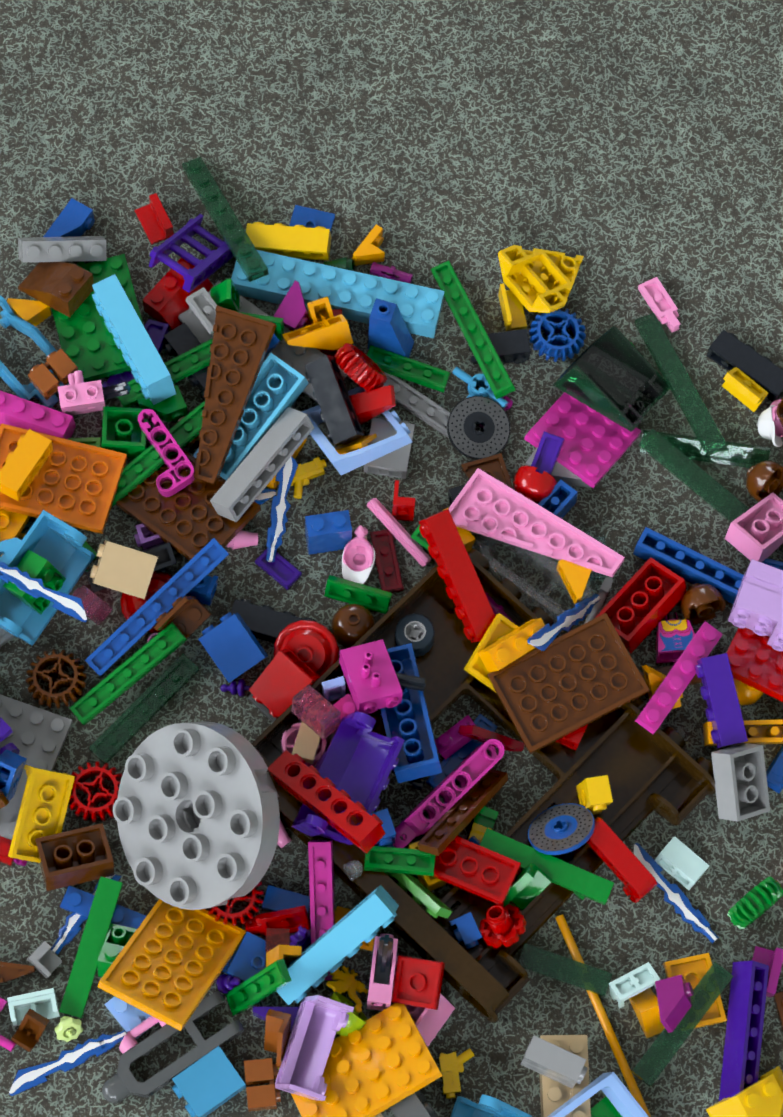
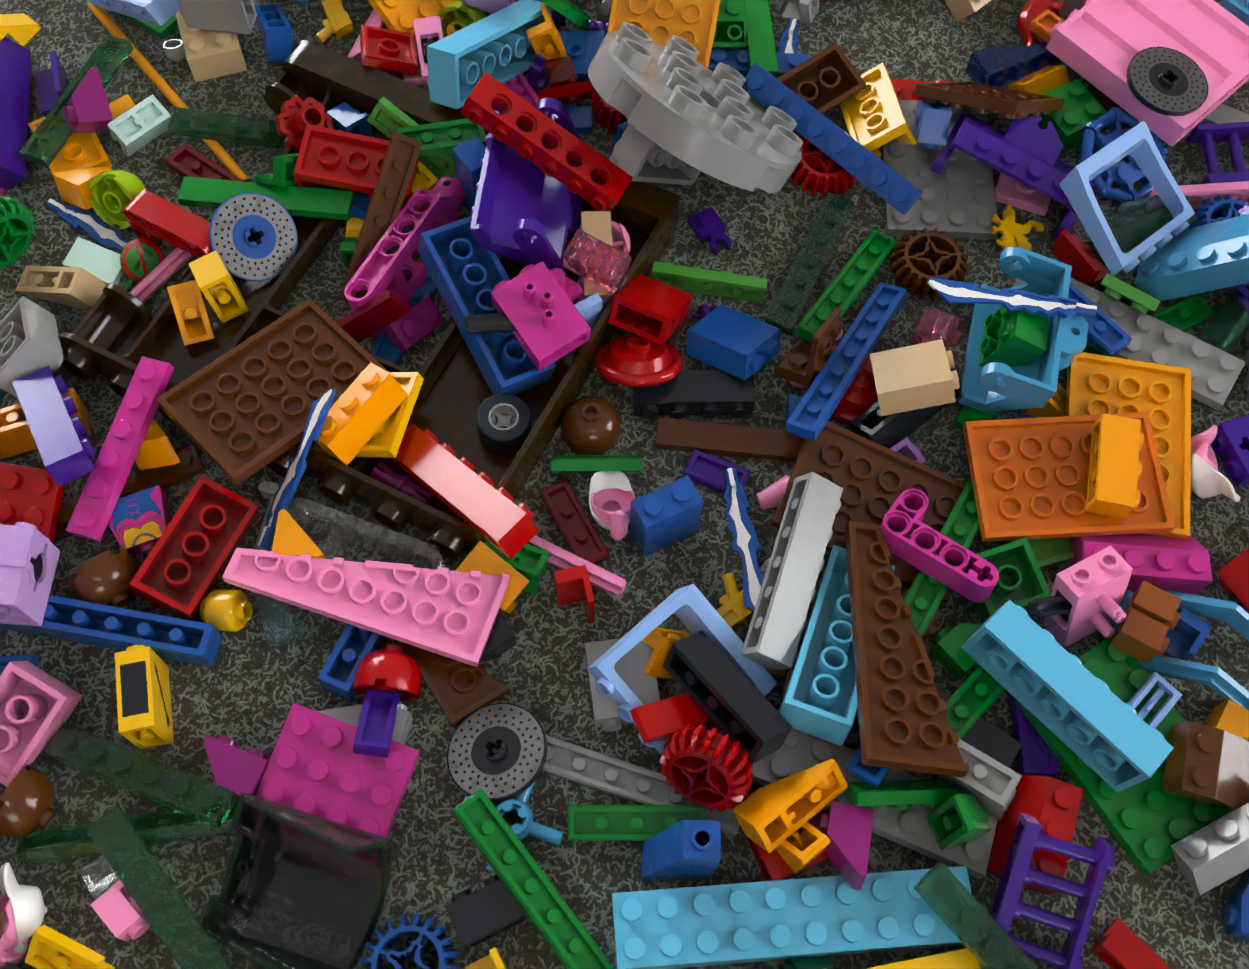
camera: 165 degrees right, 5 degrees down
(22, 368) = (1186, 636): none -> blue panel
(78, 335) = (1166, 706): none -> light blue tile
(90, 794) = (833, 140): none -> blue plate
(221, 708) = (711, 282): none -> bright green plate
(261, 590) = (727, 439): none -> reddish brown tile
(508, 1066) = (274, 32): none -> blue slope
(589, 928) = (191, 163): none -> dark red plate
(592, 1067) = (174, 50): none -> light grey hinge
(619, 783) = (190, 312): none -> light orange slope
(630, 566) = (226, 609): none -> yellow head
(634, 845) = (160, 275): none -> bright pink axle
(636, 465) = (234, 767): none -> magenta slope
(653, 849) = (139, 259): none -> piece
(657, 916) = (112, 193): none -> lime cylinder
(685, 938) = (74, 185): none -> light orange slope
(686, 515) = (143, 697): none -> yellow brick
(704, 1058) = (51, 84): none -> dark purple panel
(713, 850) = (61, 285): none -> tan slope
(715, 406) = (121, 913): none -> bright pink brick
(726, 429) = (98, 877): none -> clear plate

